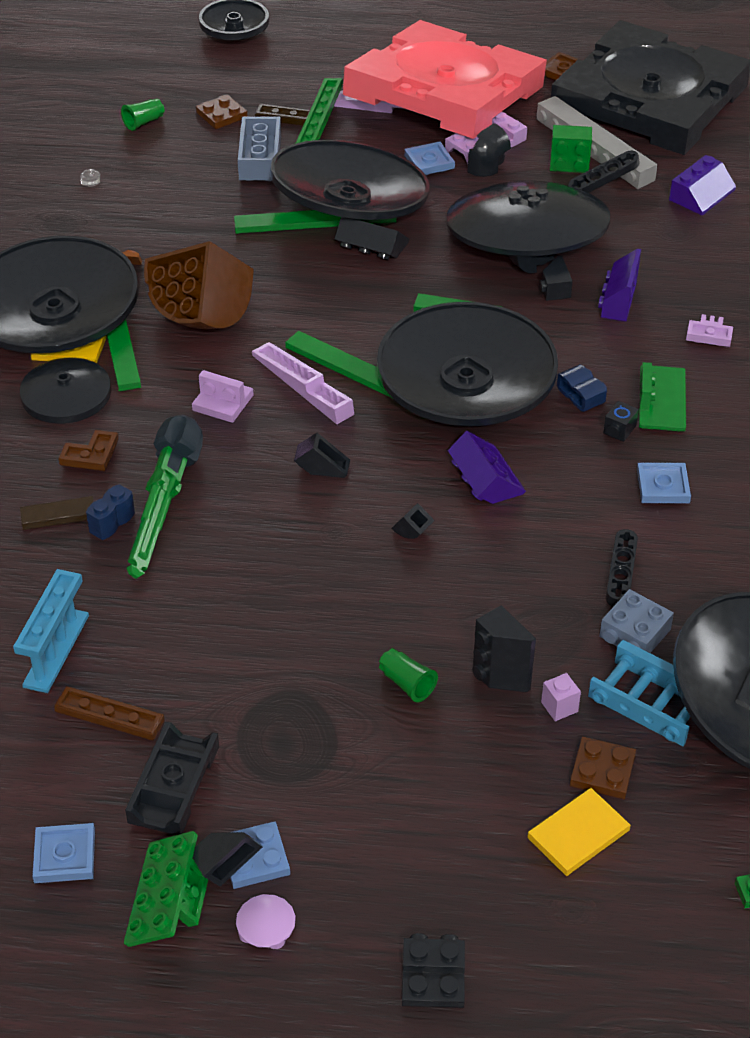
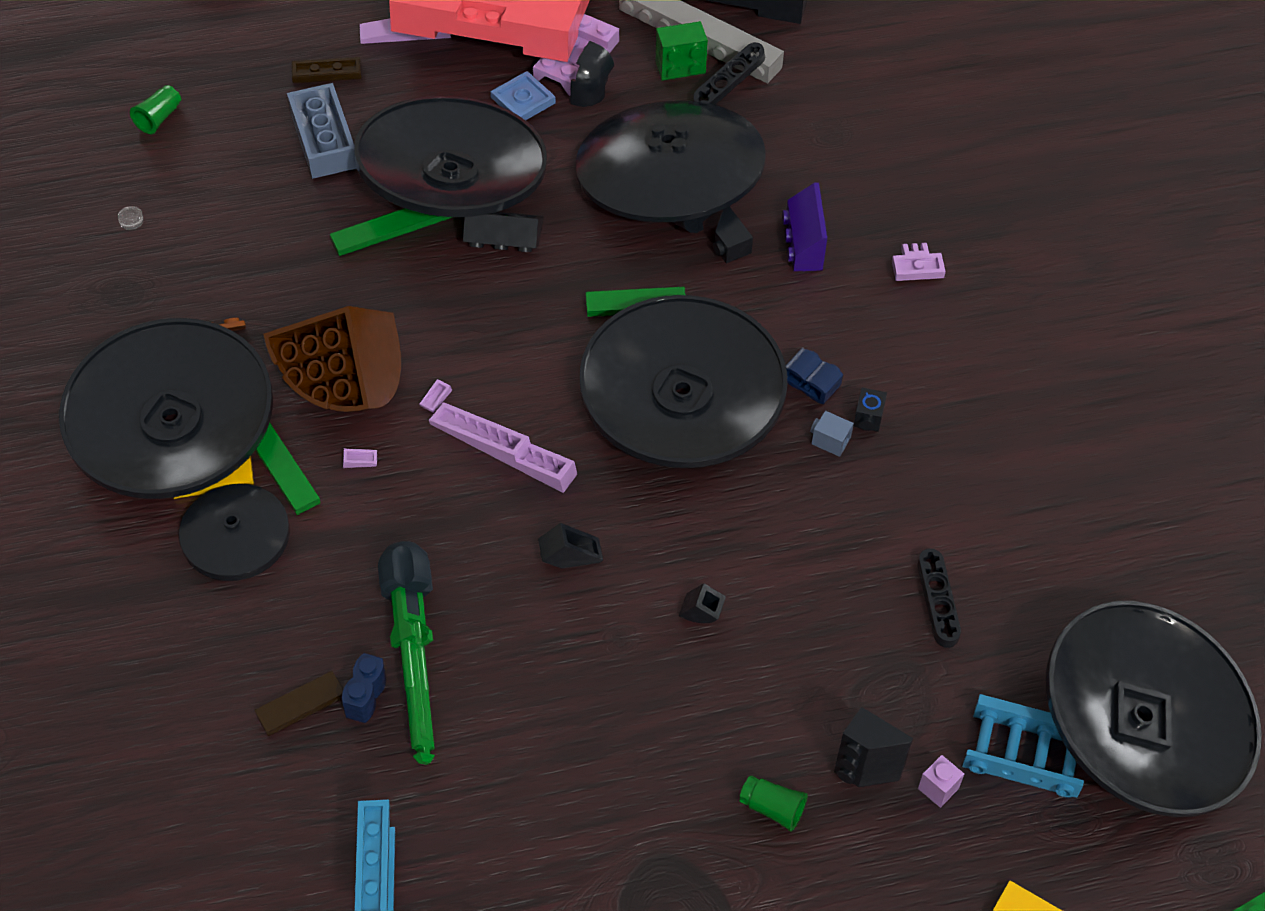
camera: 20 degrees left, 10 degrees up
(91, 456) = (308, 616): reddish brown plate -> none
(185, 364) = (359, 458): none -> lavender piece
(221, 111) = (249, 82): reddish brown plate -> none
(221, 396) = (422, 495): lavender bracket -> none
(268, 335) = (435, 396): none -> lavender piece
(321, 110) = (370, 61): green plate -> none
(336, 360) = (530, 407): green tile -> none
(484, 469) = (751, 513): dark purple slope -> none
(580, 430) = (831, 433): none -> sand blue brick
(603, 767) = (1010, 850): reddish brown plate -> none
(636, 622) = (981, 666): sand blue brick -> none
(662, 398) = (900, 365): green bracket -> none
(663, 483) = (942, 477): medium blue plate -> none
(702, 185) = (839, 66): dark purple slope -> none

